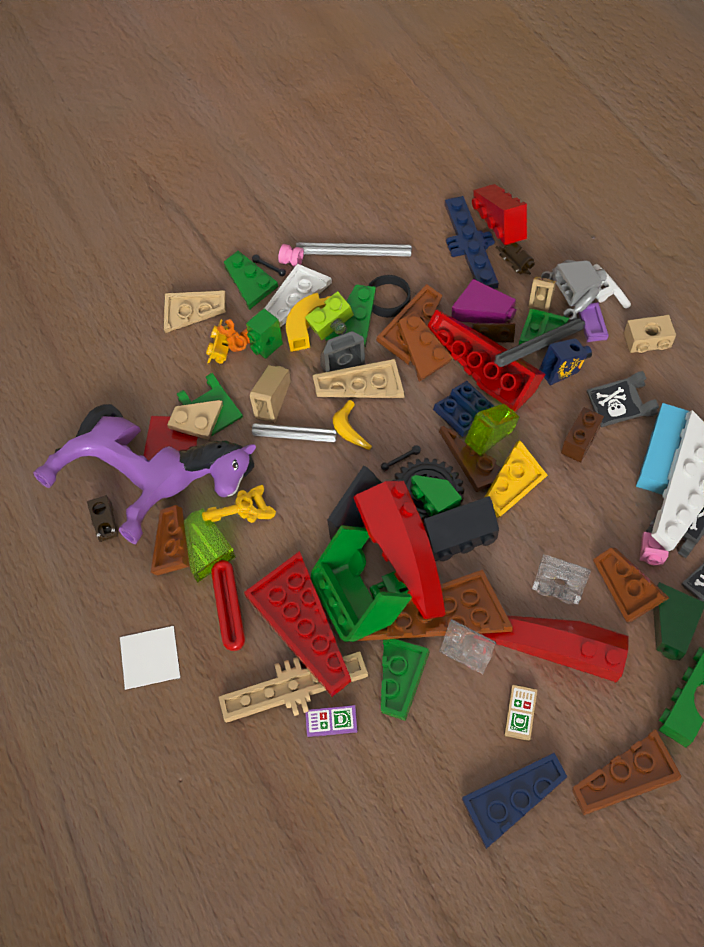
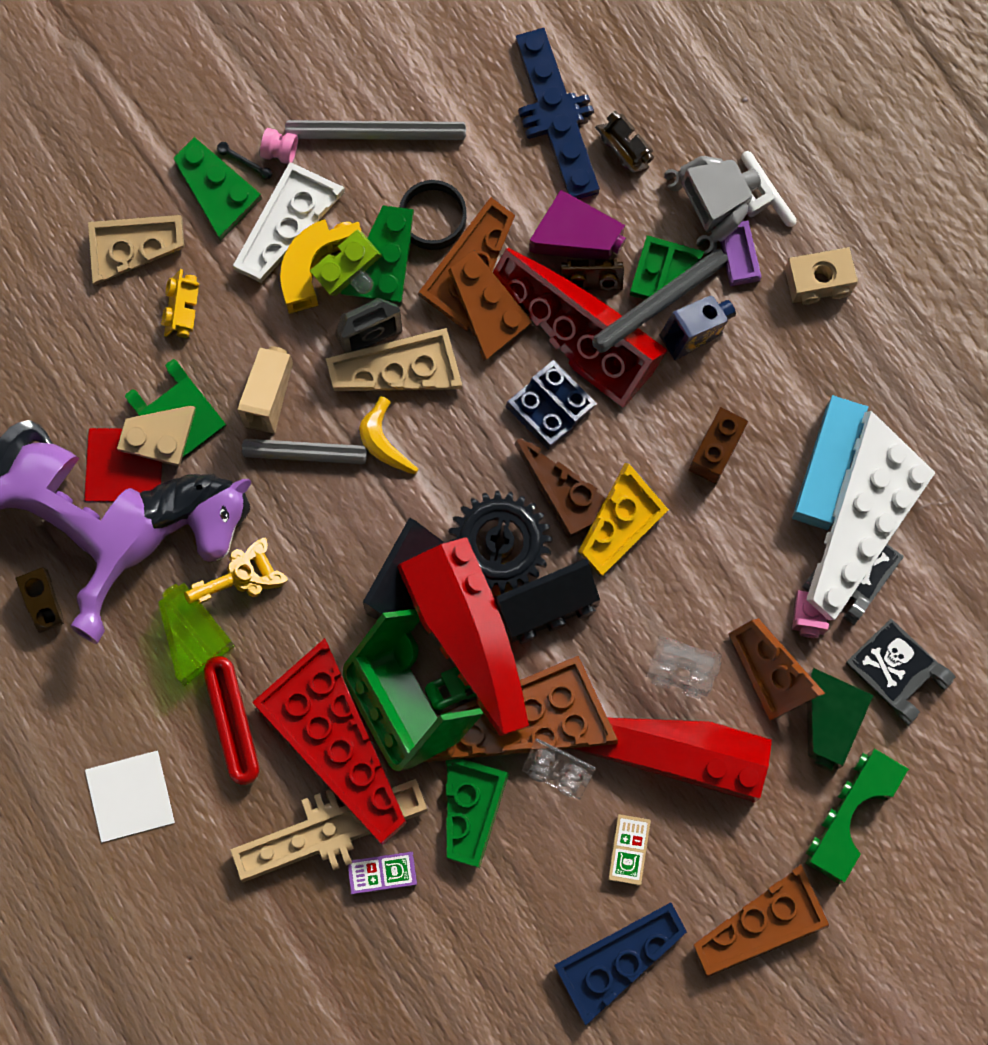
camera: 10 degrees left, 15 degrees up
(170, 543) = (141, 632): dark orange wing -> none
(236, 341) = (210, 304): orange bar -> none
(264, 333) = (248, 294): green brick -> none
(415, 450) = (481, 473): black hinge -> none
(435, 494) = (514, 556): green slope -> none
(491, 427) = (590, 442): clear neon green slope -> none
(502, 213) = (601, 69): red wedge -> none
(542, 294) = (665, 209): tan slope -> none
(621, 401) = (773, 386): flag -> none

